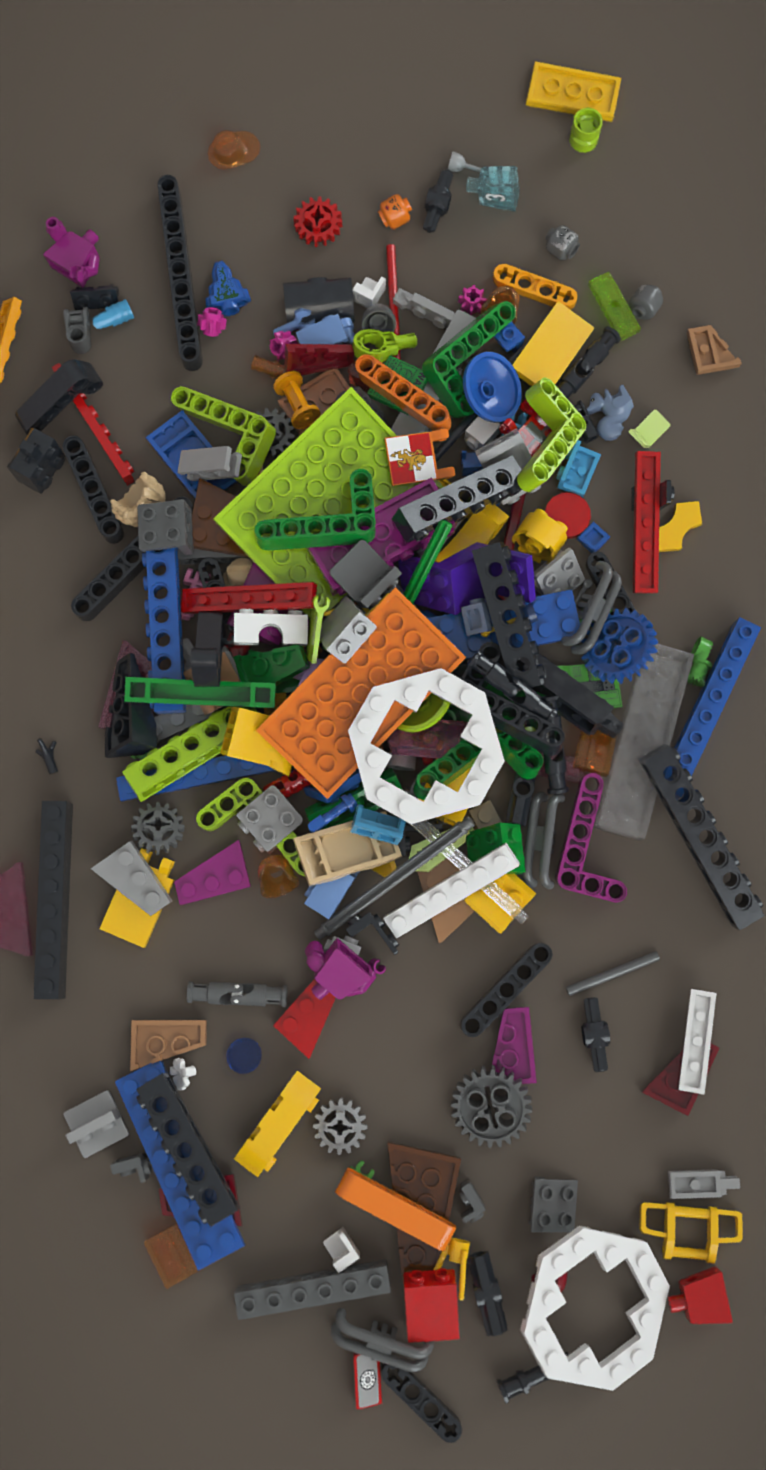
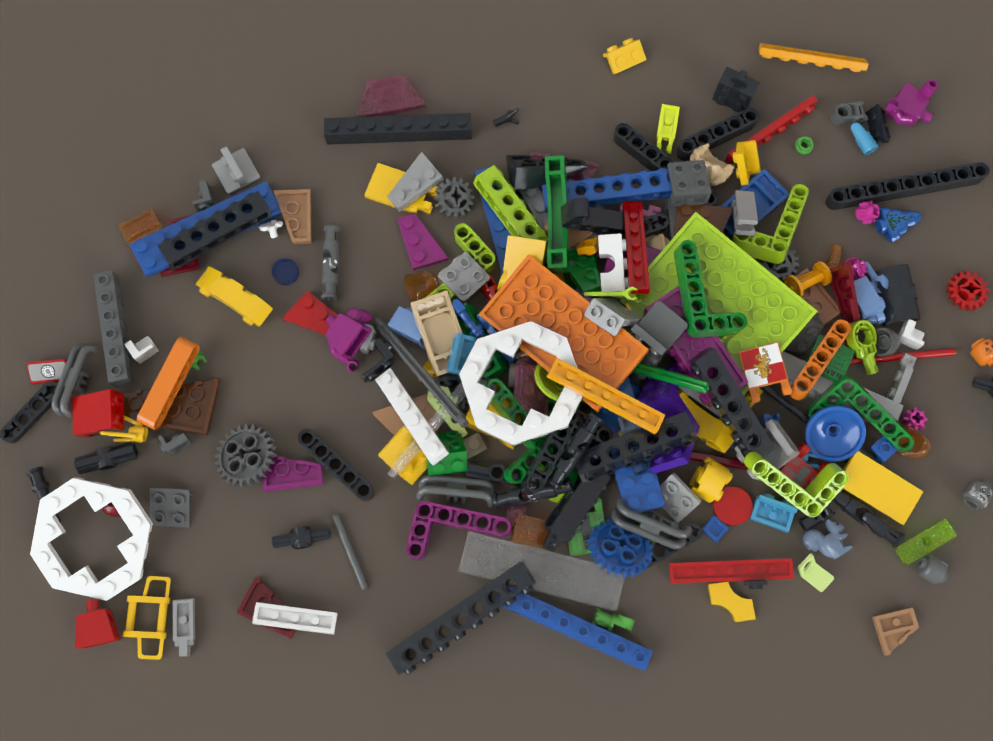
camera: 85 degrees right, 5 degrees down
(57, 392) = (793, 100): black beam -> none
(77, 551) = (667, 126): none -> neon yellow hinge
(114, 381) = (805, 141): none -> bright green plate
(136, 455) = (747, 160): none -> yellow bracket
(240, 657) = (588, 246): none -> light orange plate
(352, 1126) = (232, 351): light grey gear -> none
(451, 643) = (606, 396): none -> light orange plate
(481, 433) = (795, 430): white brick -> none
(536, 283) = (931, 472): light orange beam -> none

